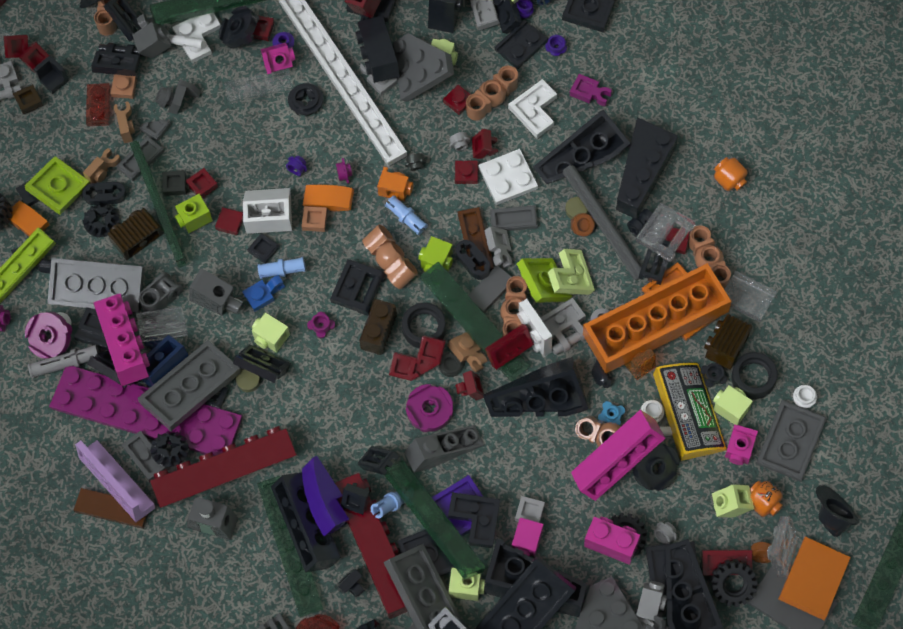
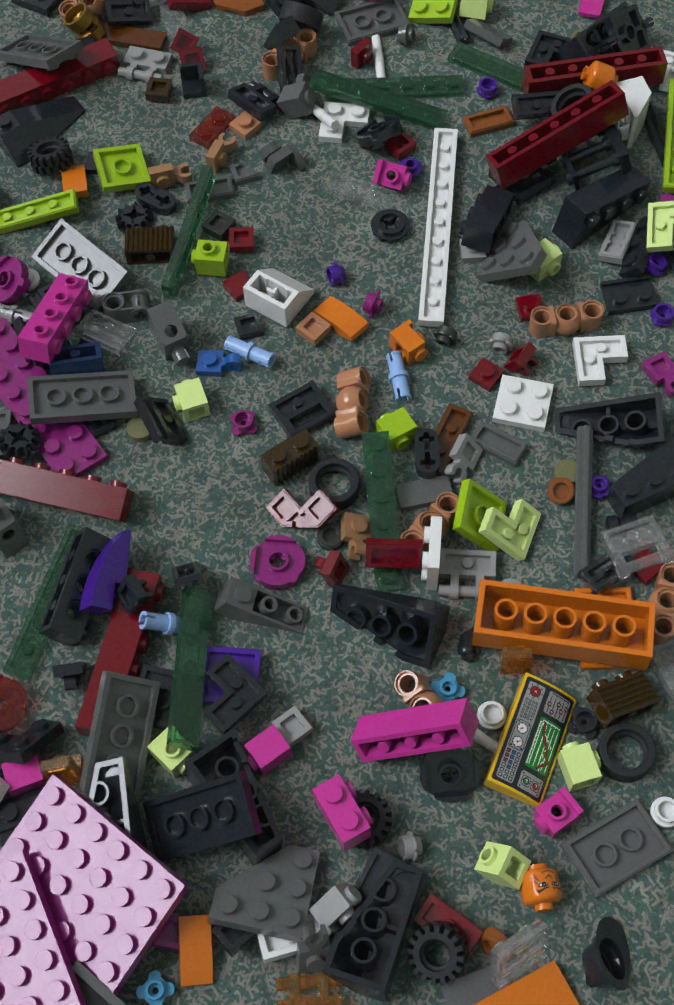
camera: 35 degrees right, 5 degrees down
(609, 209) = (604, 482): none -> dark purple plate

